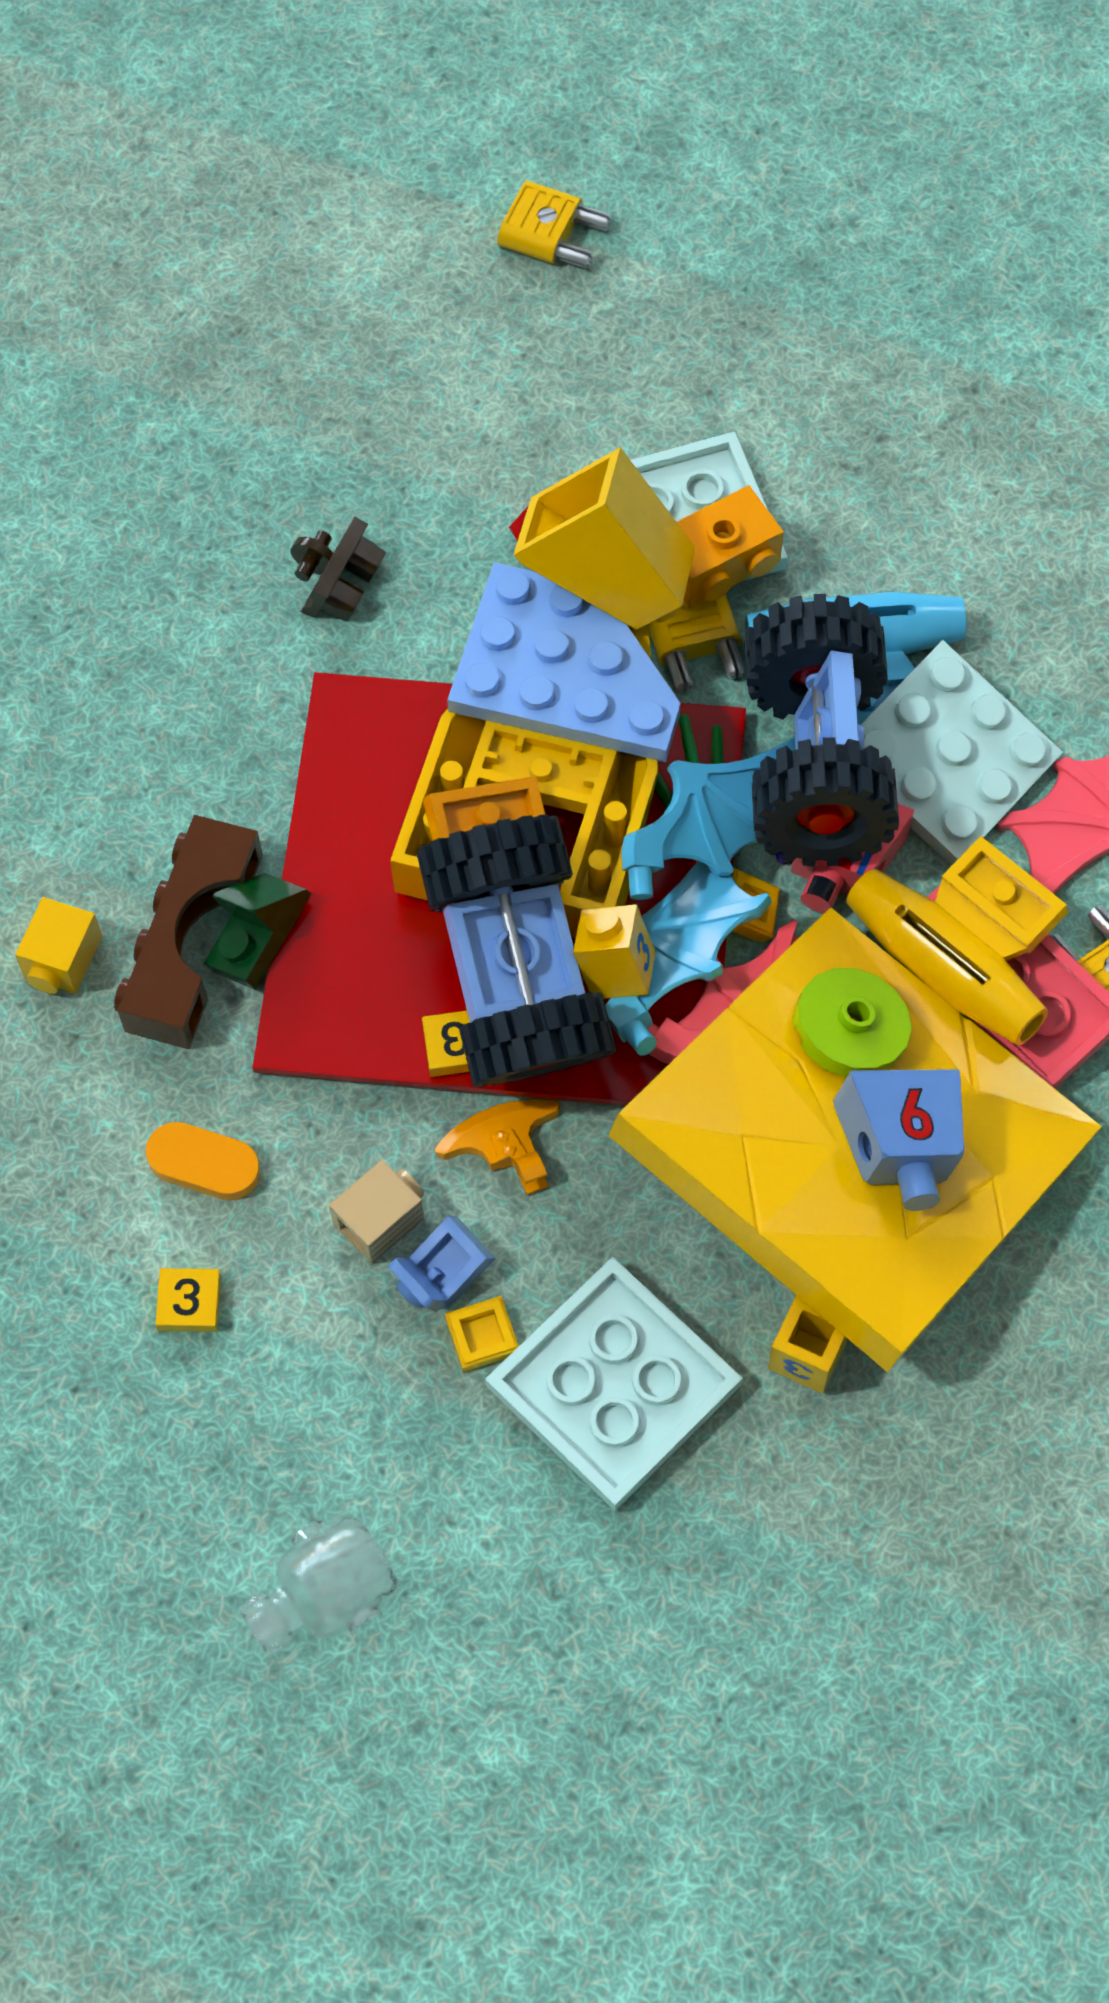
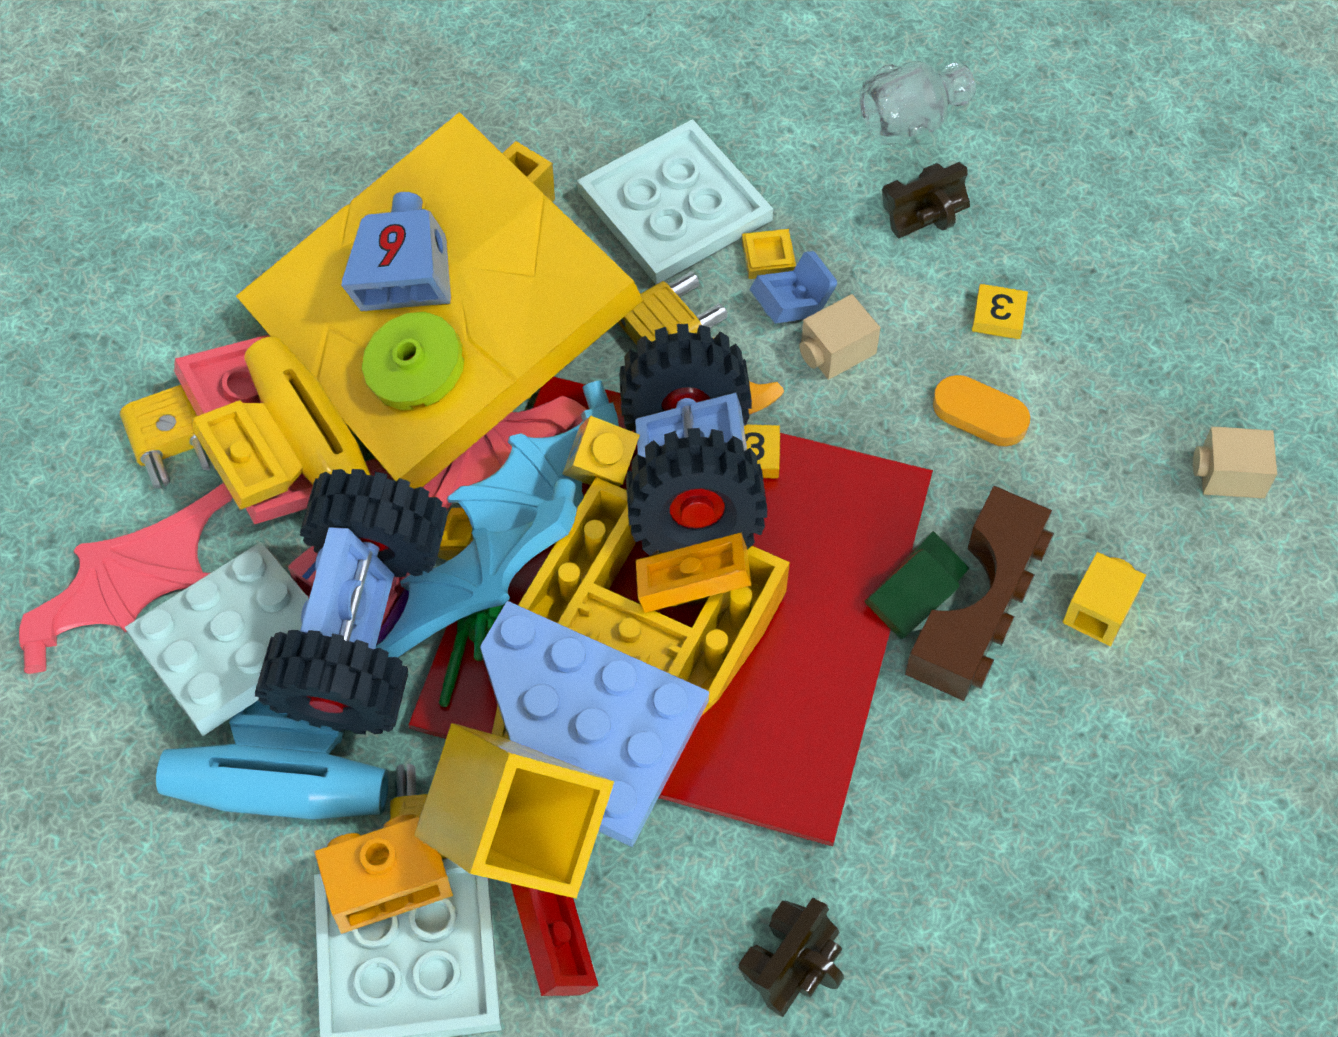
camera: 170 degrees left, 5 degrees down
(315, 1423) = (928, 200): none -> dark brown hips
(594, 1208) = (664, 308): none -> yellow piece

